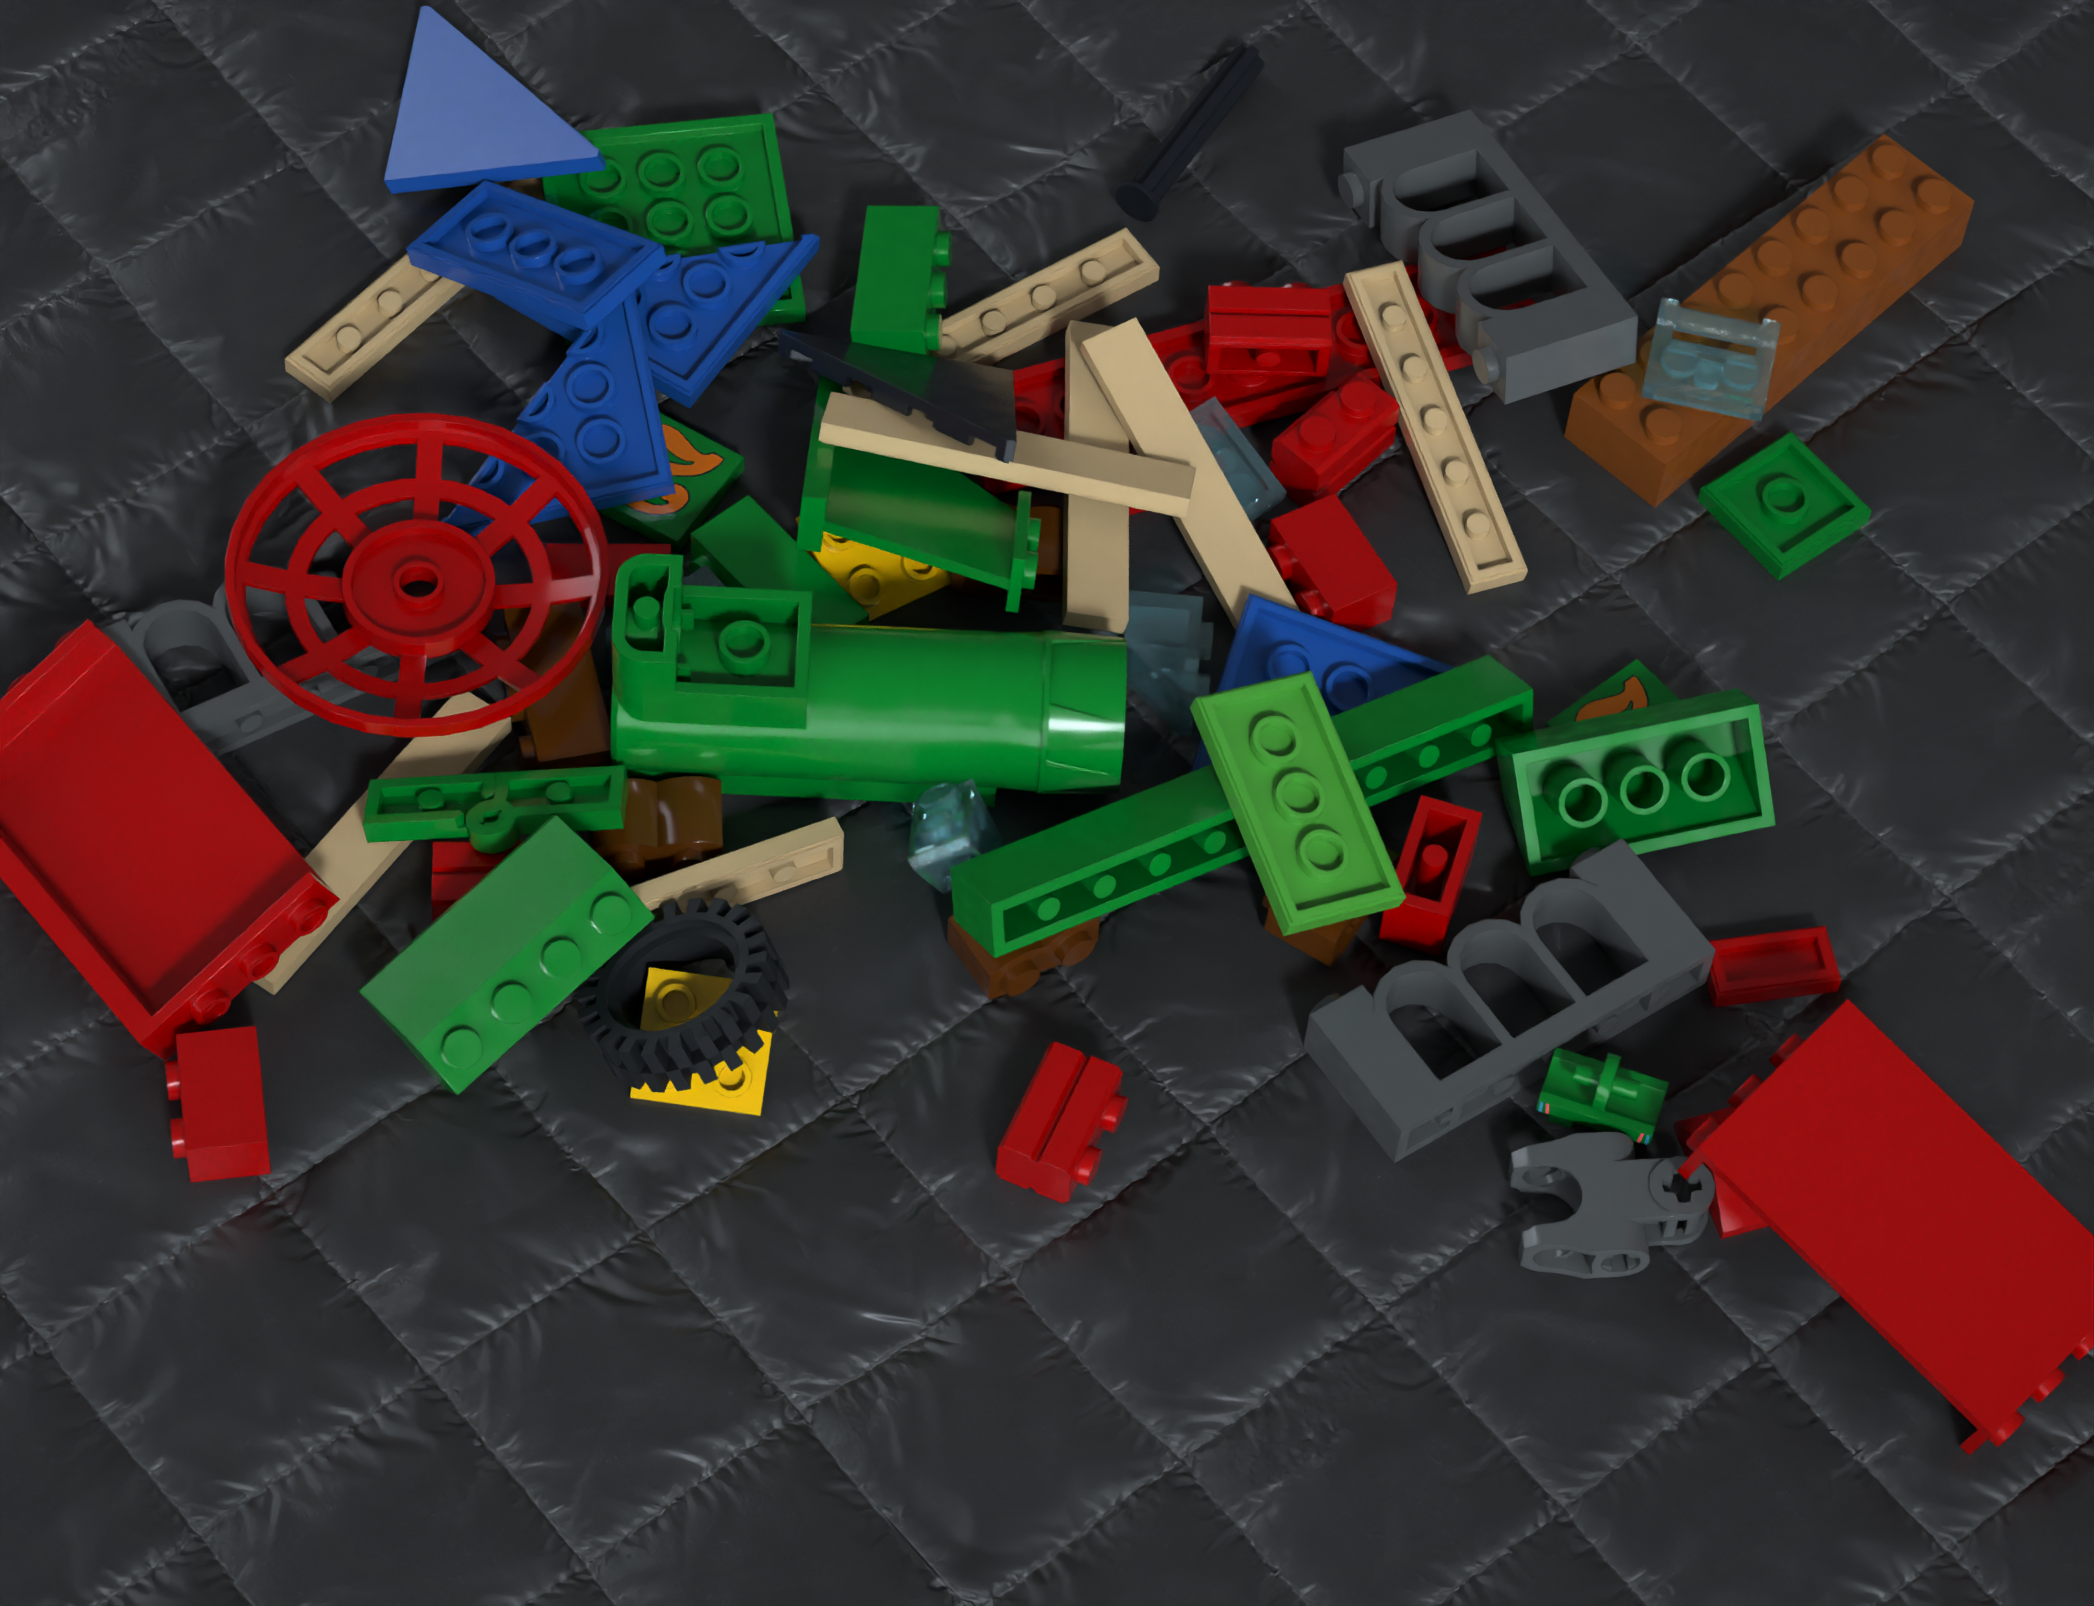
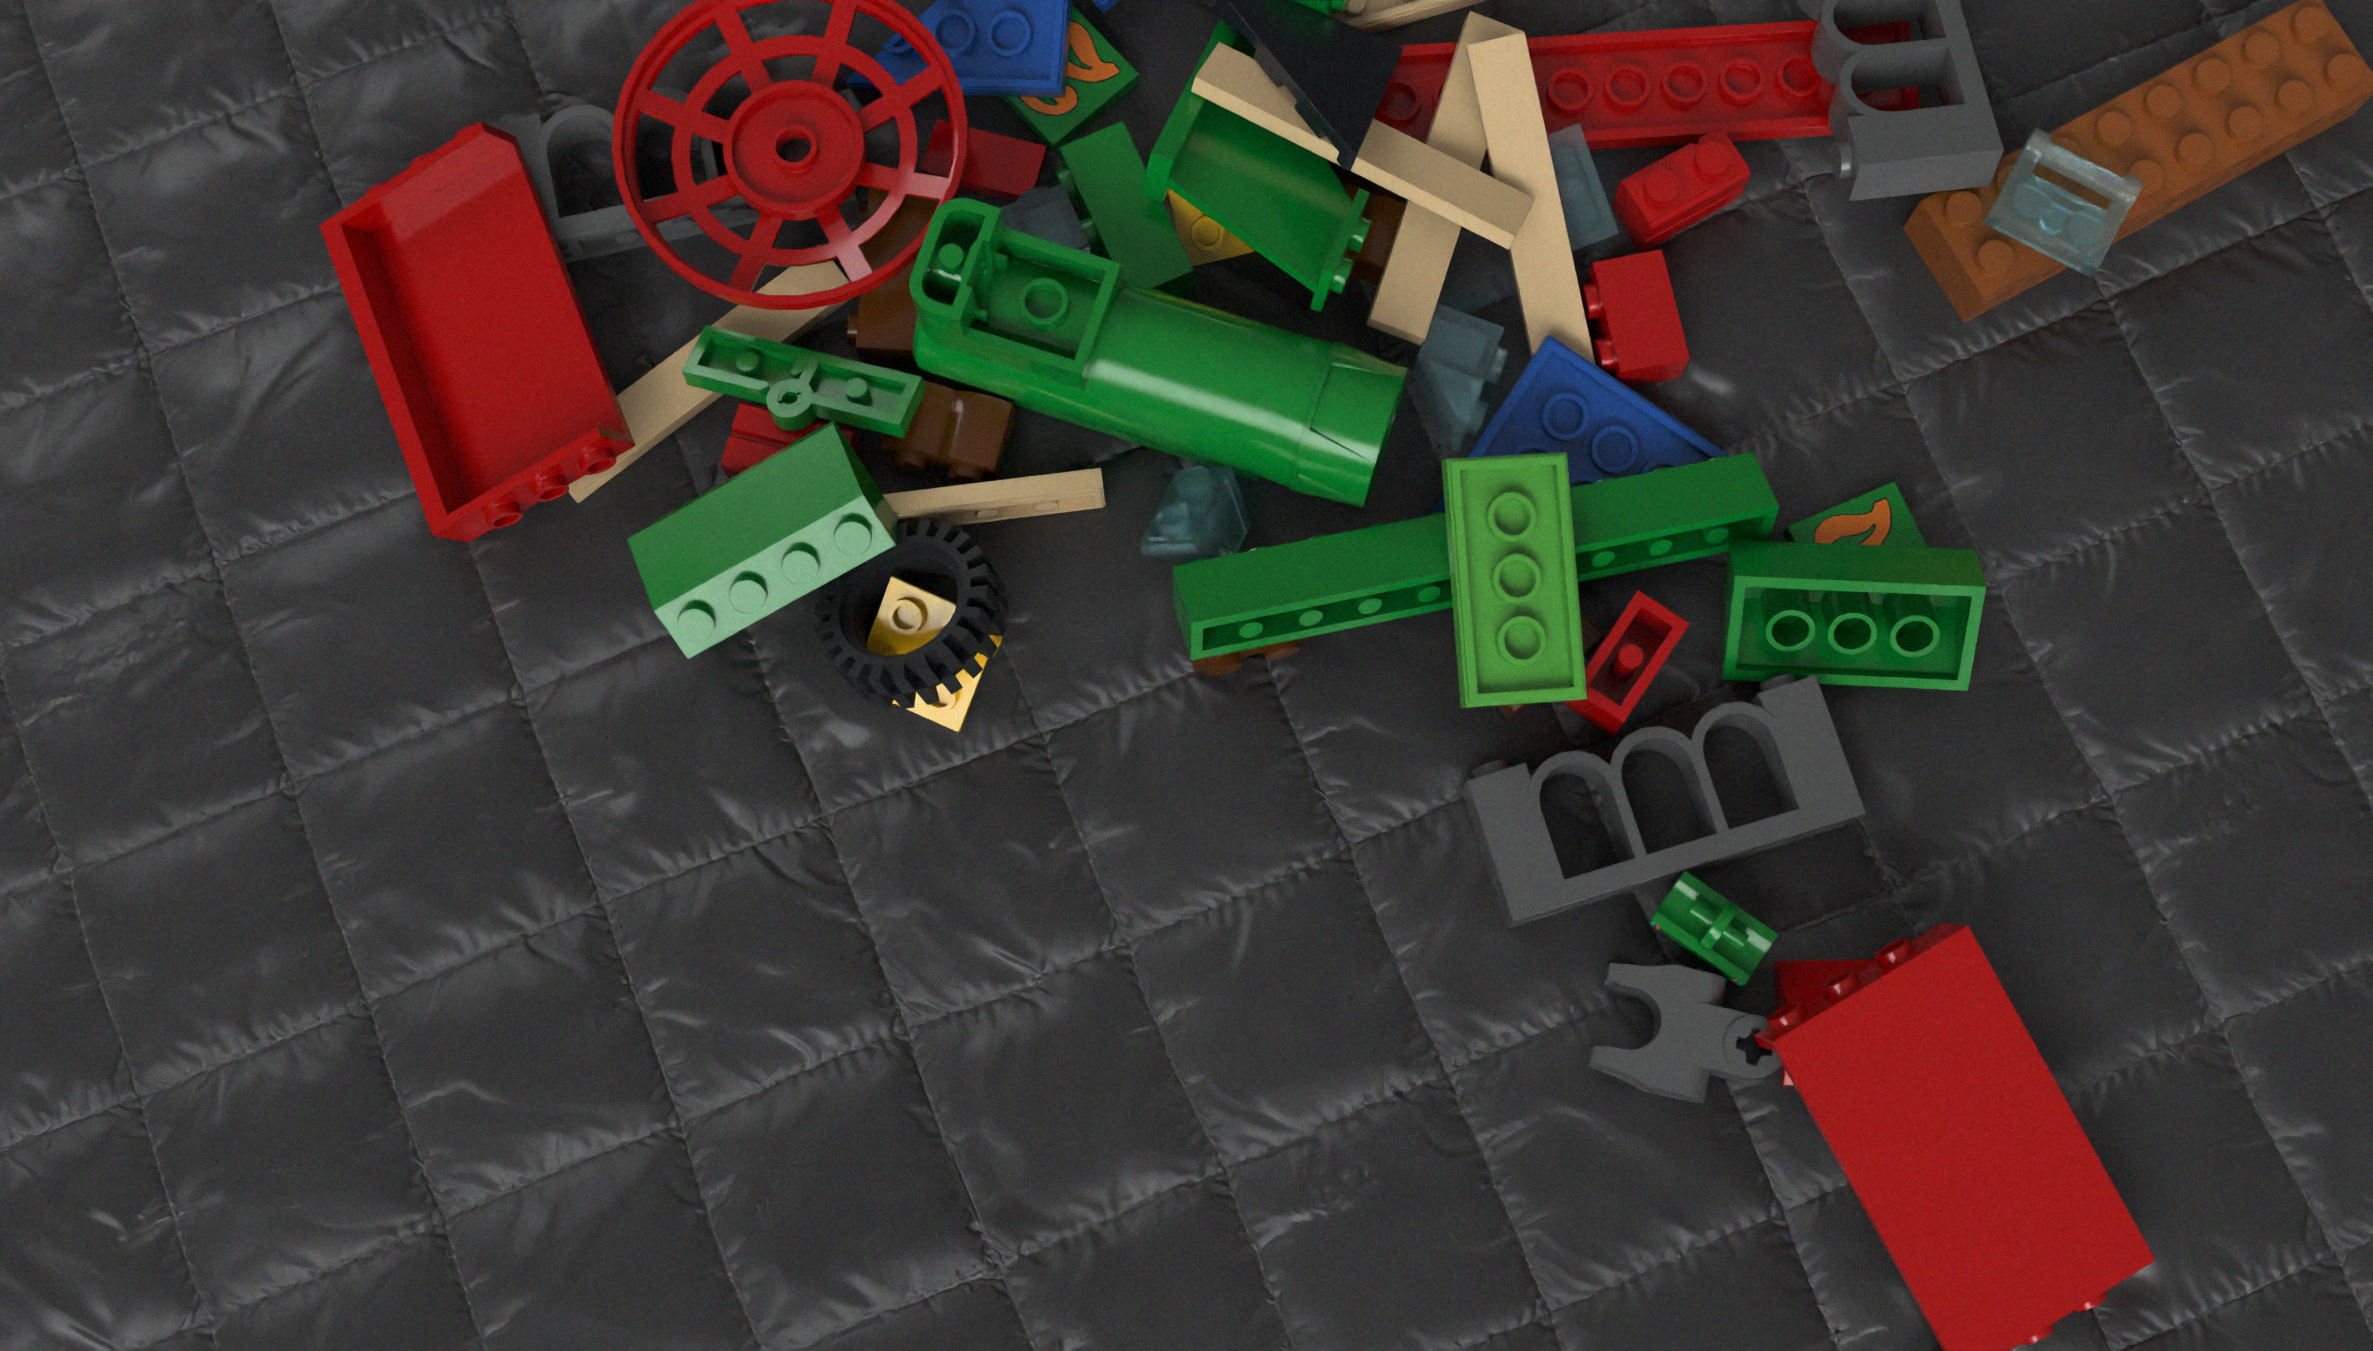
camera: 25 degrees right, 20 degrees up
(221, 1104) = (493, 605): red brick -> none
(1060, 1123) = (1214, 819): red brick -> none
(1267, 330) = (1652, 63): red brick -> none
(1435, 427) = (1780, 195): tan tile -> none
(1772, 966) = (1918, 827): red tile -> none
(1784, 505) = (2088, 353): green tile -> none

